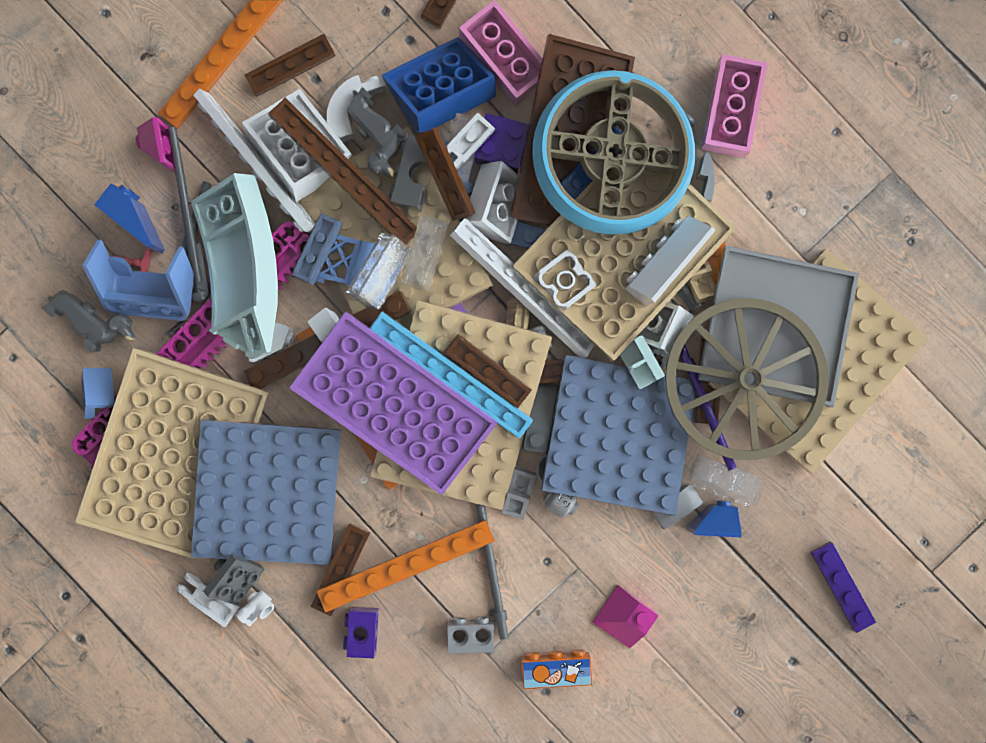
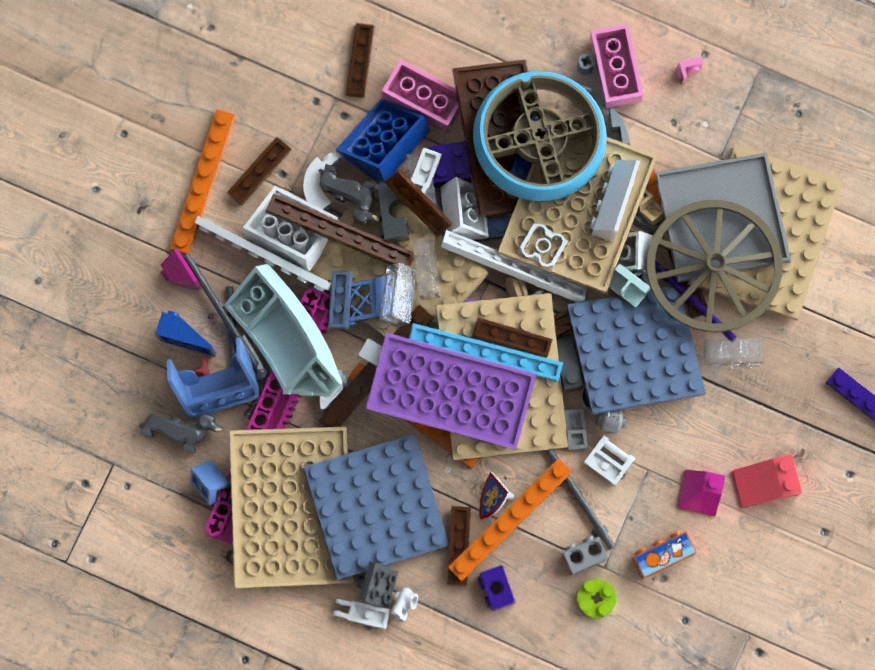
camera: 20 degrees left, 10 degrees down
(398, 533) = (493, 497): none -> shield
(461, 672) = (590, 589): none -> lime plate
(534, 547) = (607, 466): none -> white plate
(687, 502) = (711, 381): light grey slope -> none
(697, 84) = (585, 70): none -> light grey bush
(702, 636) = (767, 481): none -> coral slope
(717, 520) = (741, 384): blue slope -> none
(814, 138) = (690, 66): none -> bright pink bracket

